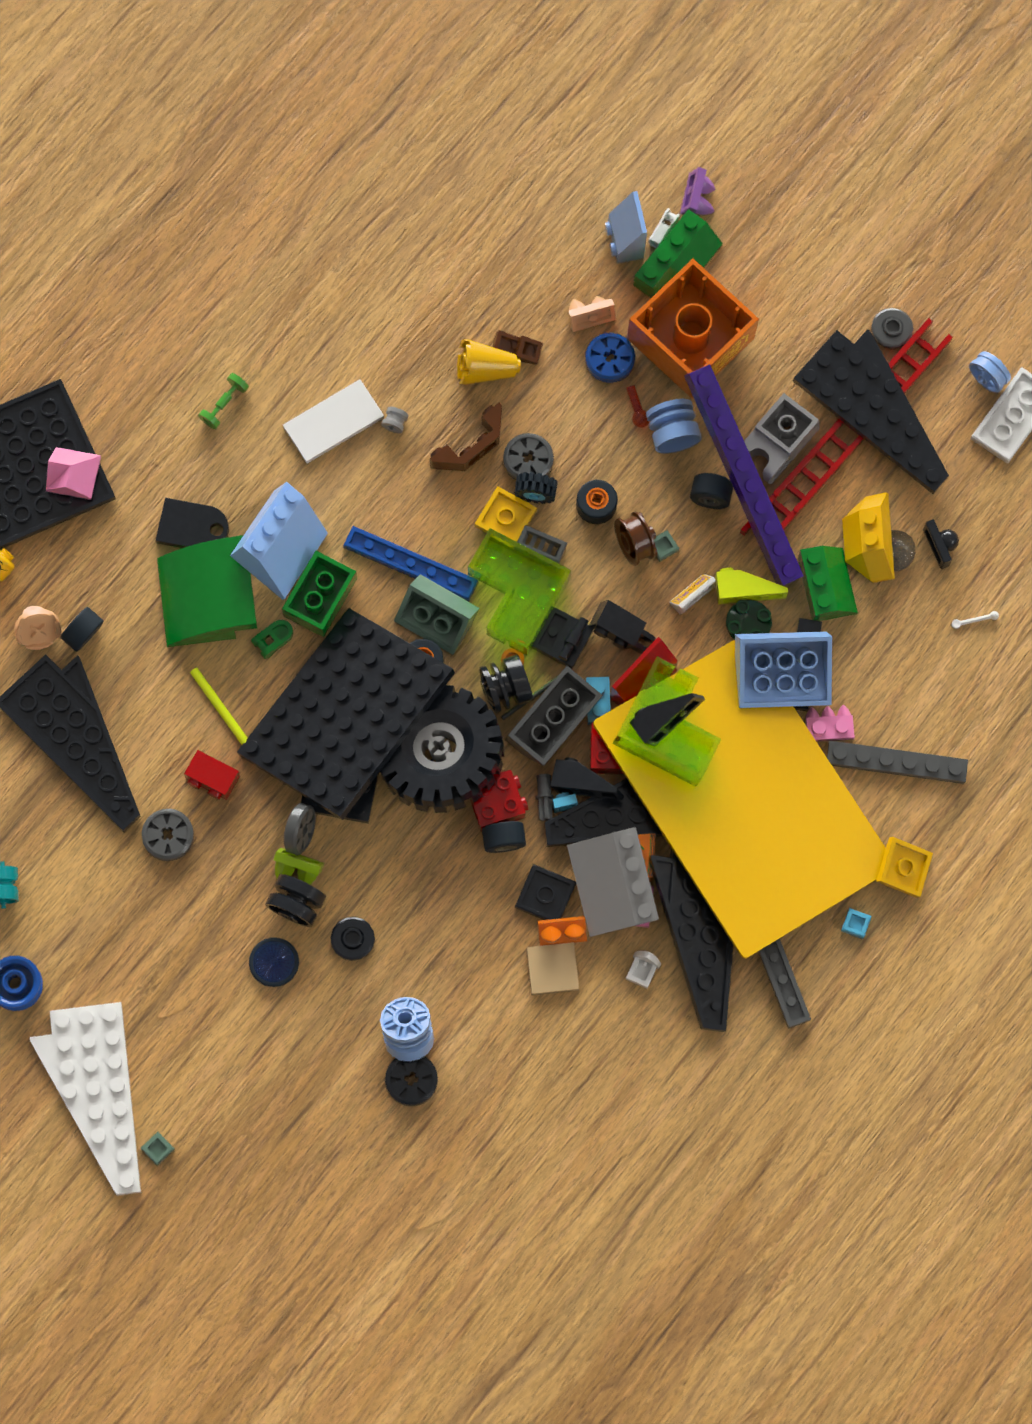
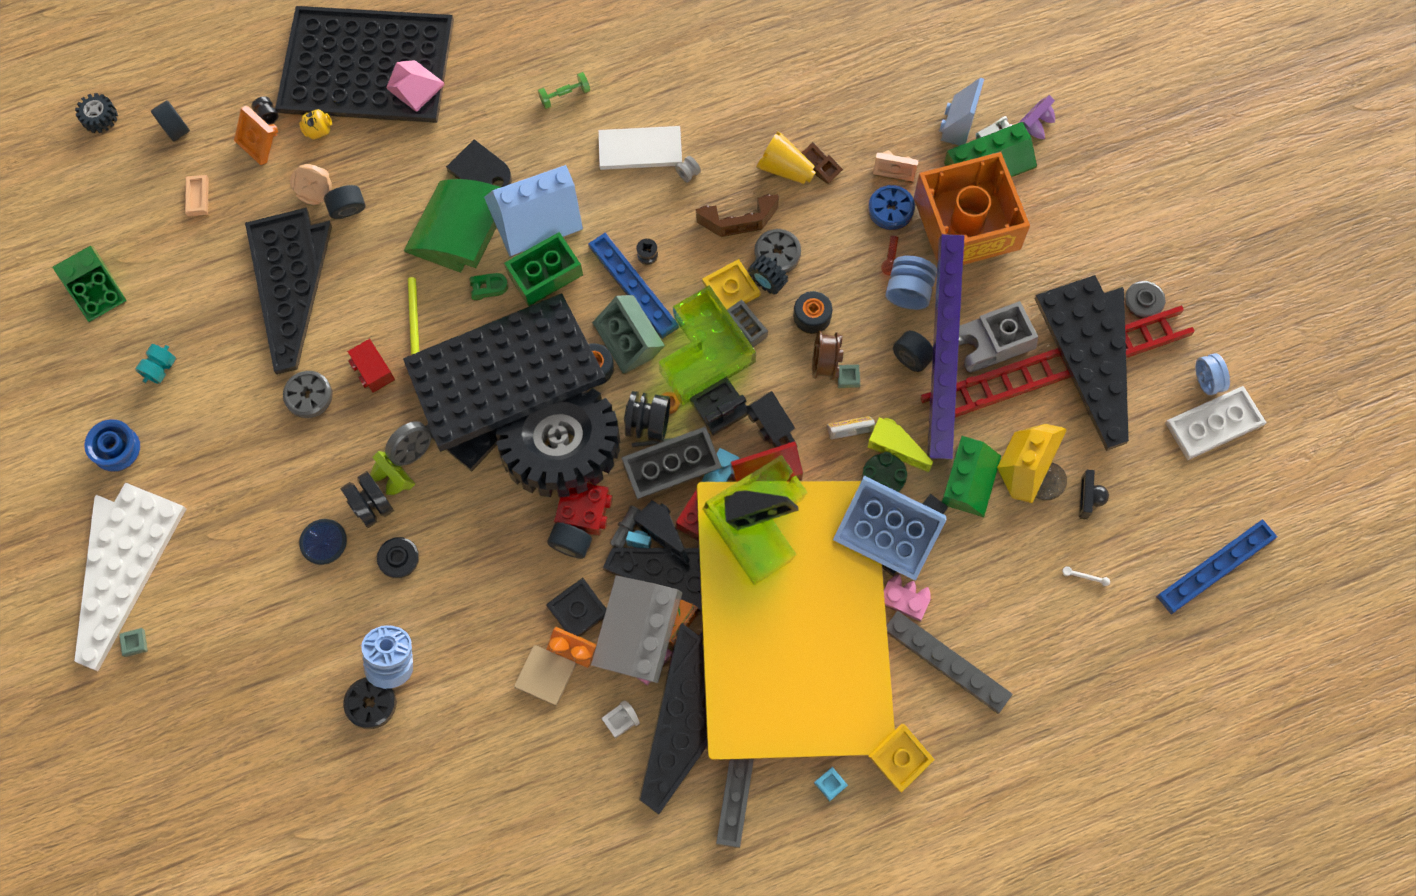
camera: 35 degrees right, 5 degrees down
(405, 529) = (645, 256): none -> black wheel

